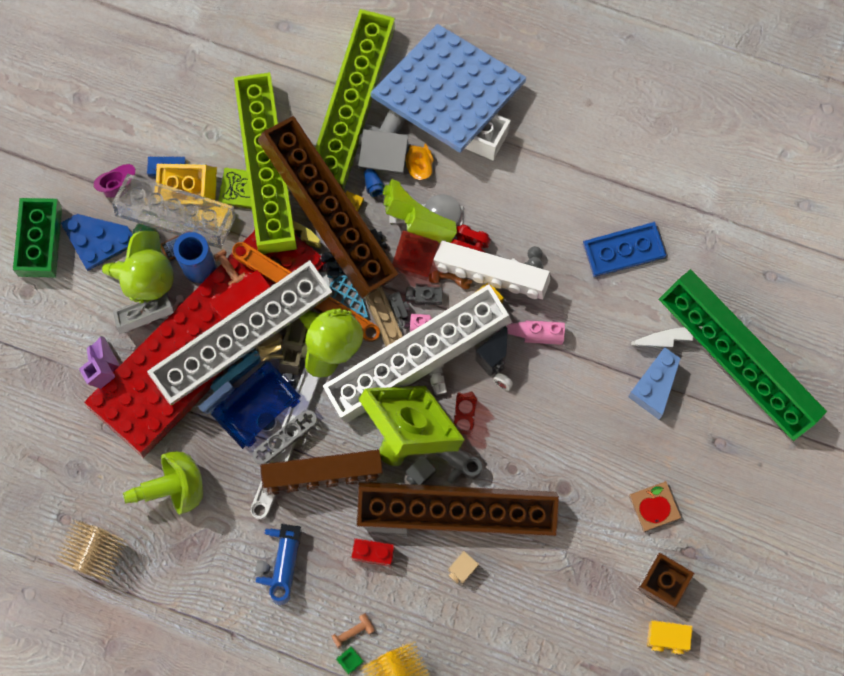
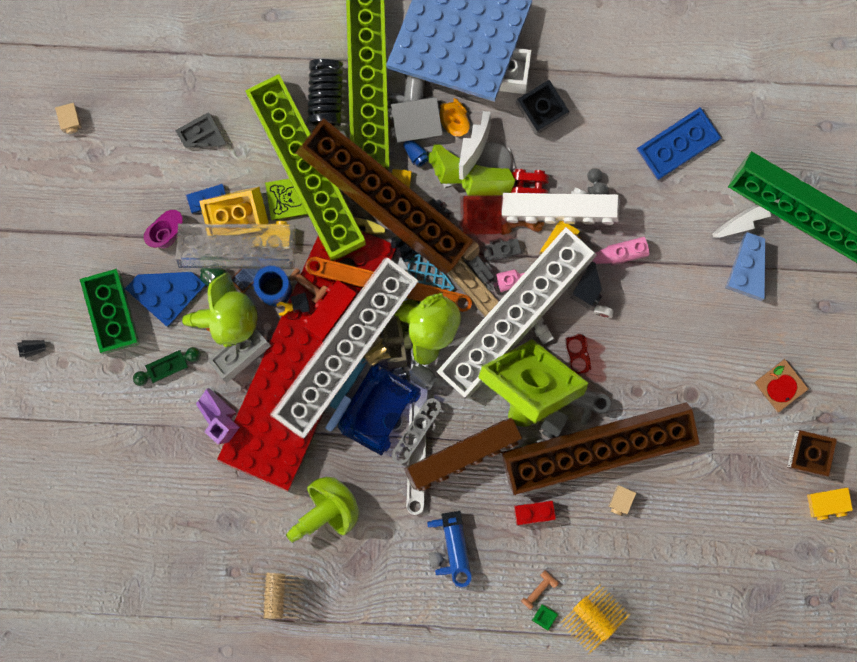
camera: 20 degrees left, 10 degrees up
(67, 57) = (68, 118): none -> tan brick
(72, 305) = (166, 366): none -> dark green plate
(181, 106) = (201, 133): none -> dark grey wing
(213, 282) = (298, 303): none -> black piece
(308, 100) = (325, 77): none -> black piece
(308, 387) = (422, 376): none -> dark grey brick
(394, 286) = (471, 252): none -> tan plate
(428, 189) = (473, 146): none -> white slope
(505, 175) = (542, 107): none -> black brick

